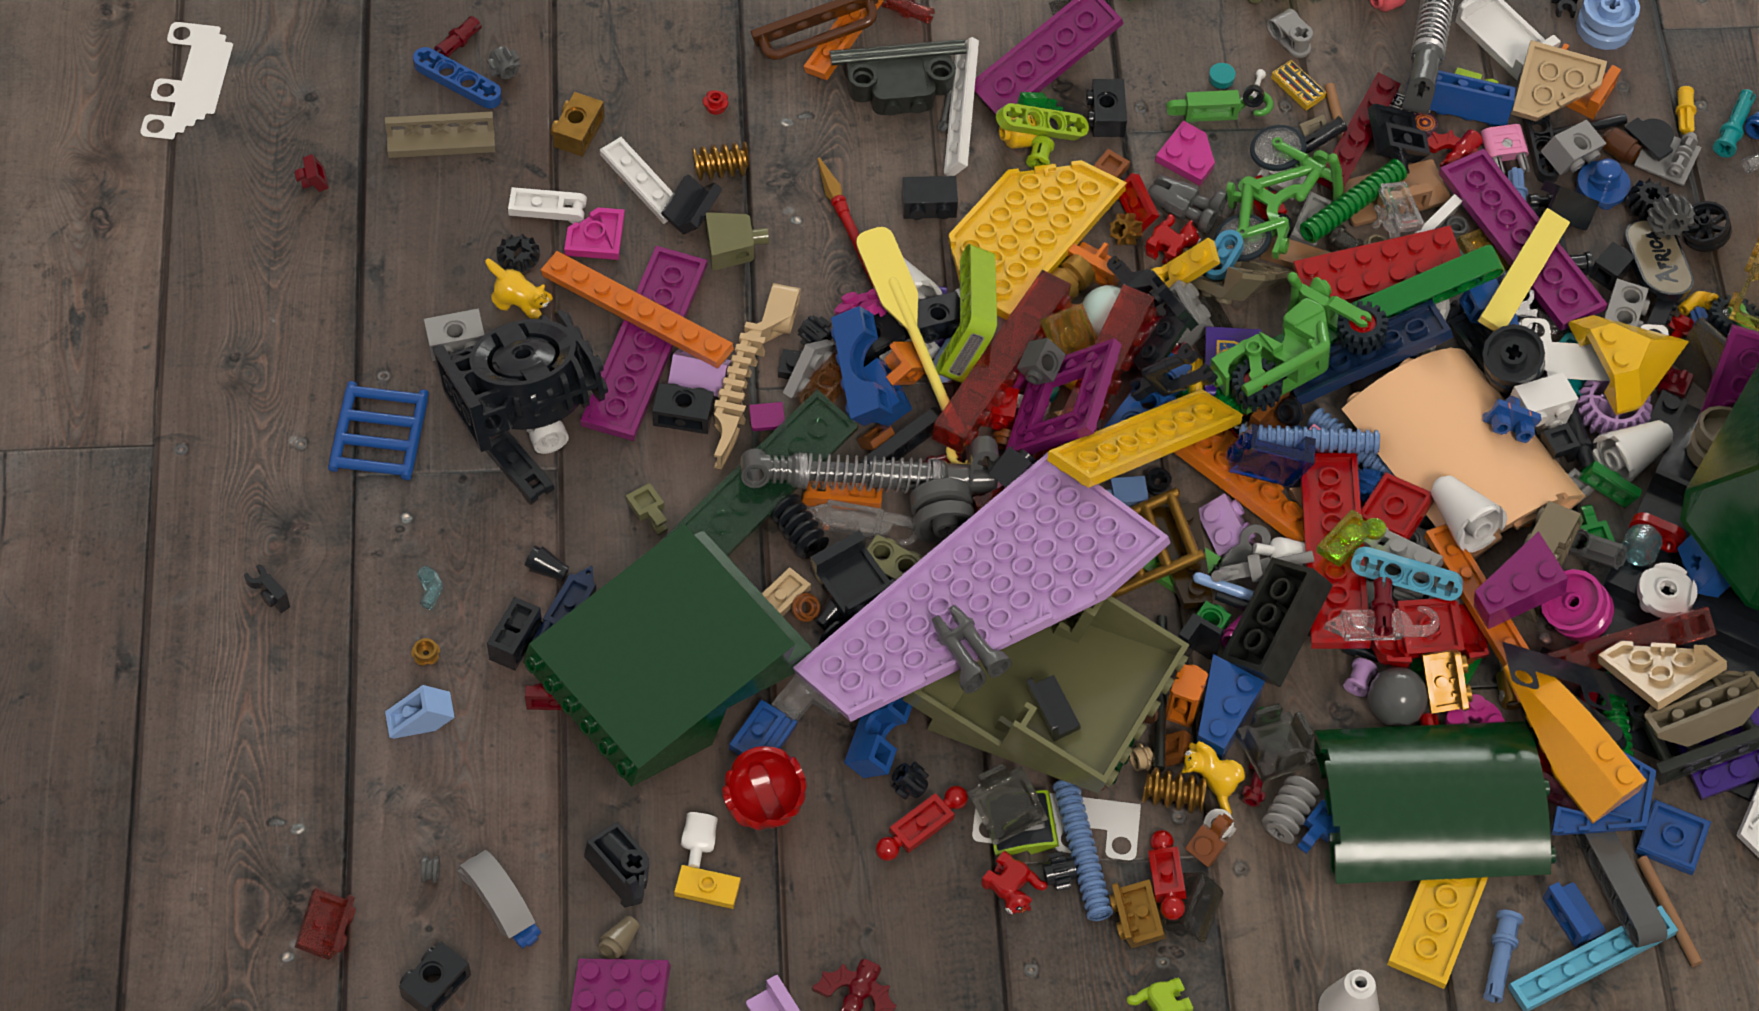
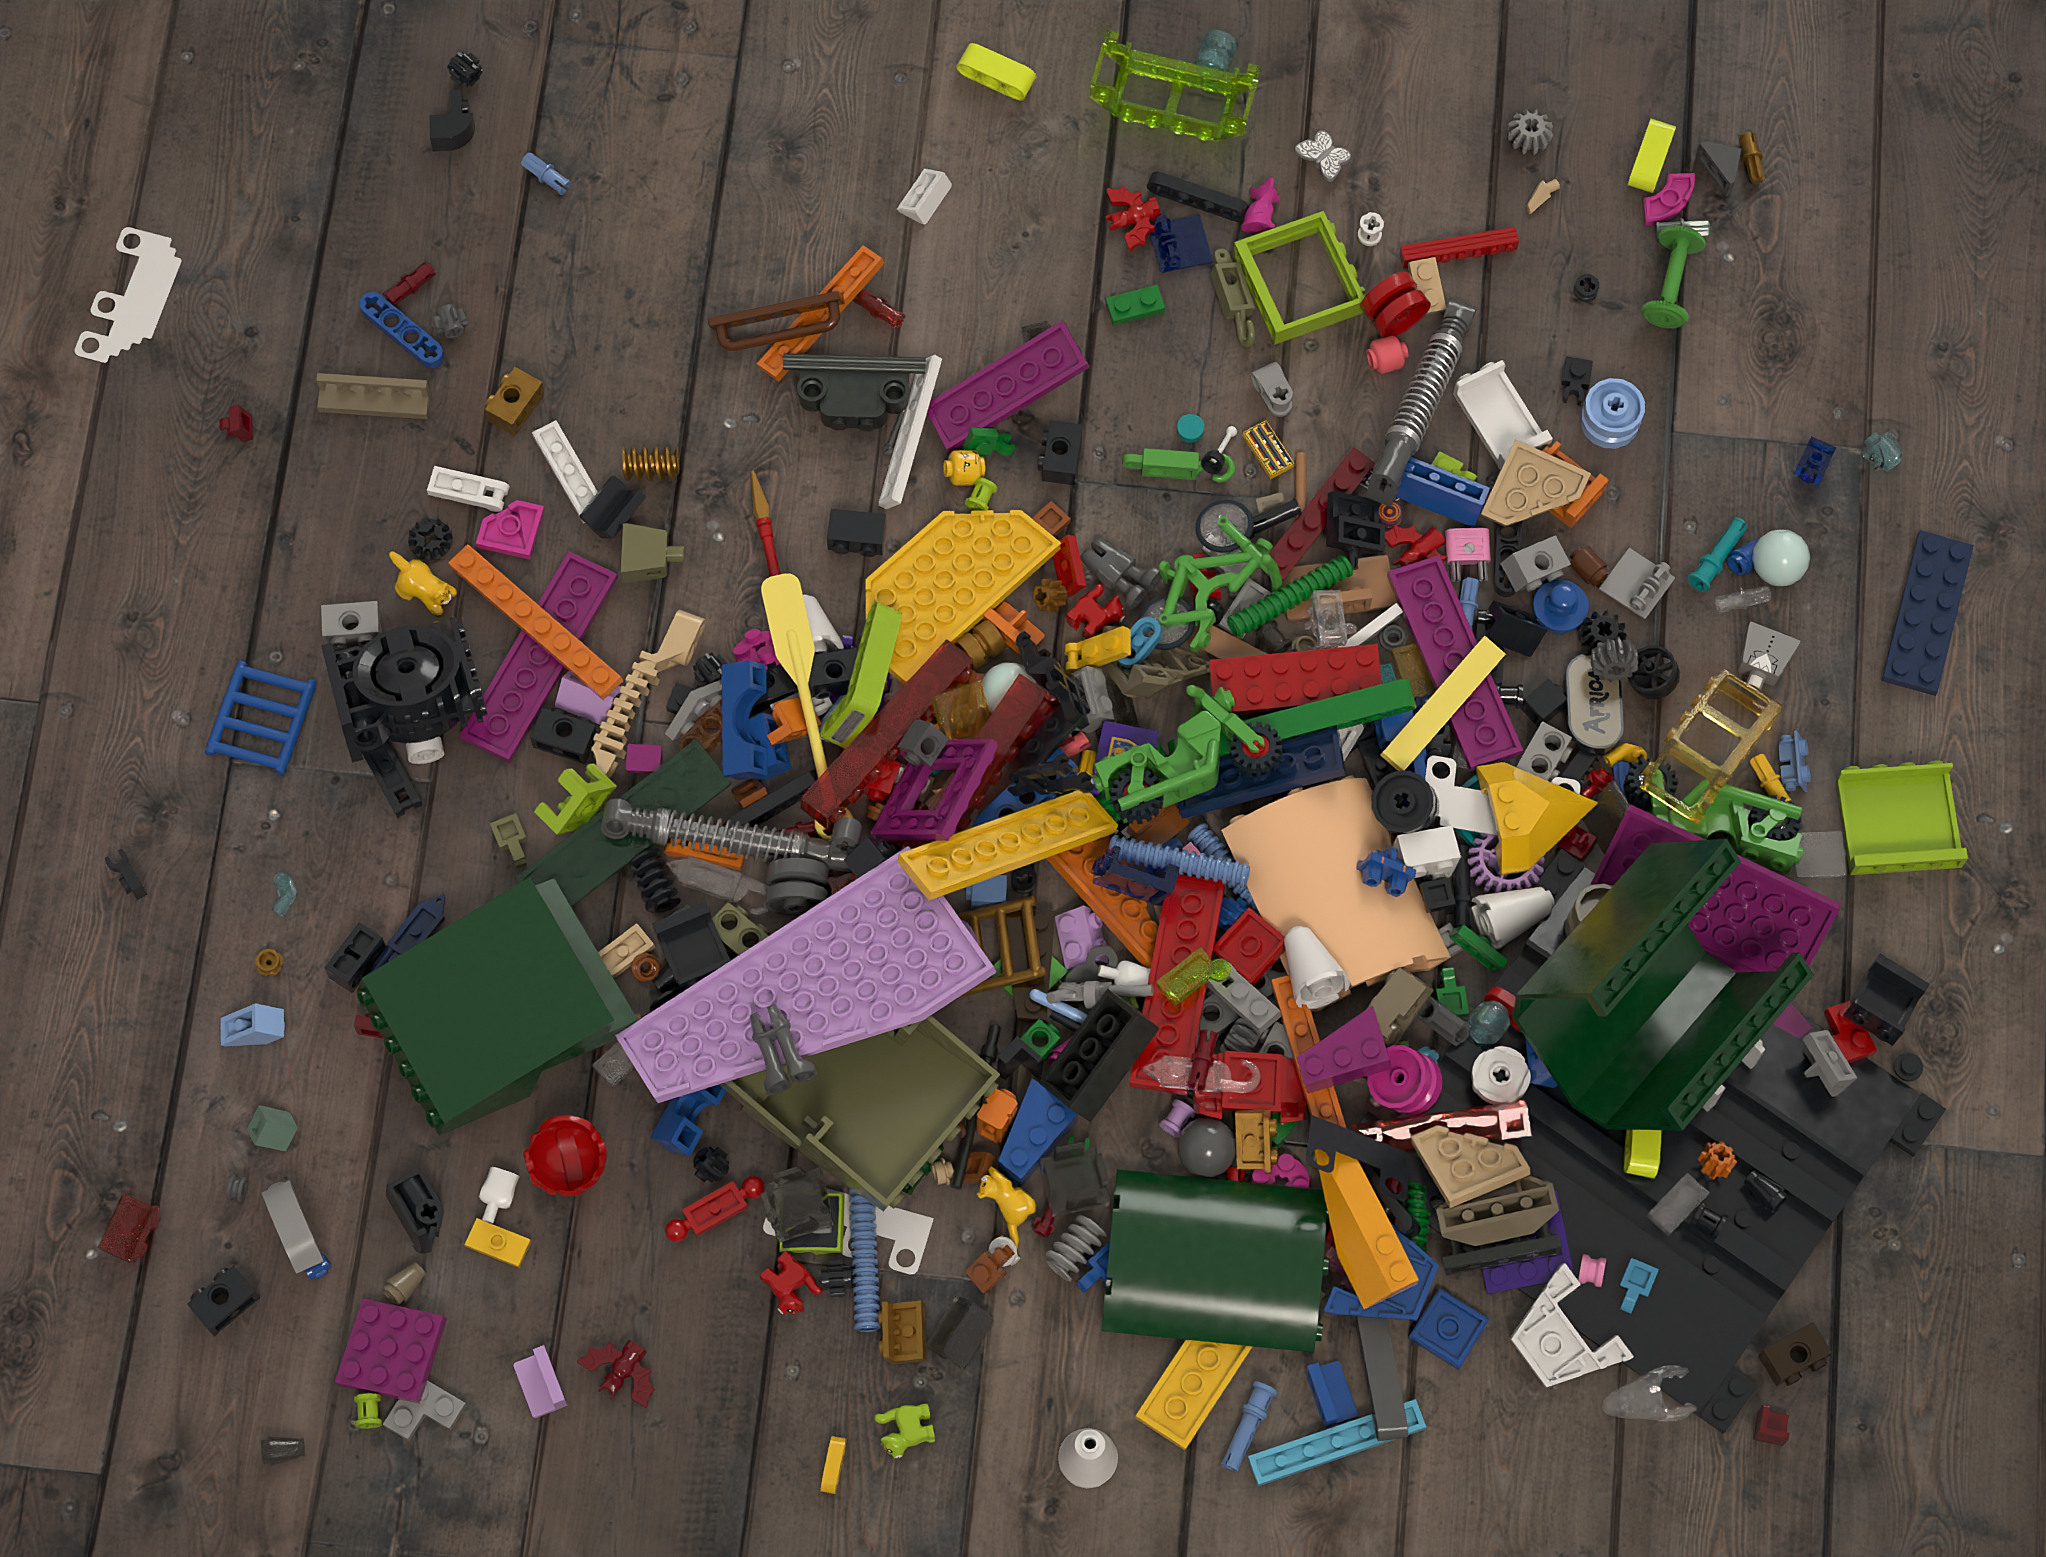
camera: 10 degrees right, 10 degrees up
(456, 807) = (272, 1128): none -> sand green panel
(546, 564) = (400, 885): black cone -> none
(715, 107) = (663, 397): red plate -> none
(718, 462) = (584, 802): none -> lime panel
(763, 728) = (579, 1093): blue plate -> none
(1042, 119) = (987, 462): lime beam -> none
(1053, 707) = (857, 1116): black panel -> none
(1167, 875) = (940, 1297): red plate -> none
(1174, 790) = (965, 1212): pearl gold piece -> none
(1187, 154) = (1134, 514): dark pink plate -> none
(1290, 412) = (1170, 824): black plate -> none
(1408, 569) = (1240, 1020): medium azure beam -> none
(1598, 124) = (1566, 536): black bar -> none
(1652, 135) = (1624, 559): black piece -> none
(1664, 900) = (1425, 1404): medium nougat bar -> none
(1686, 109) = (1669, 532): yellow axle -> none

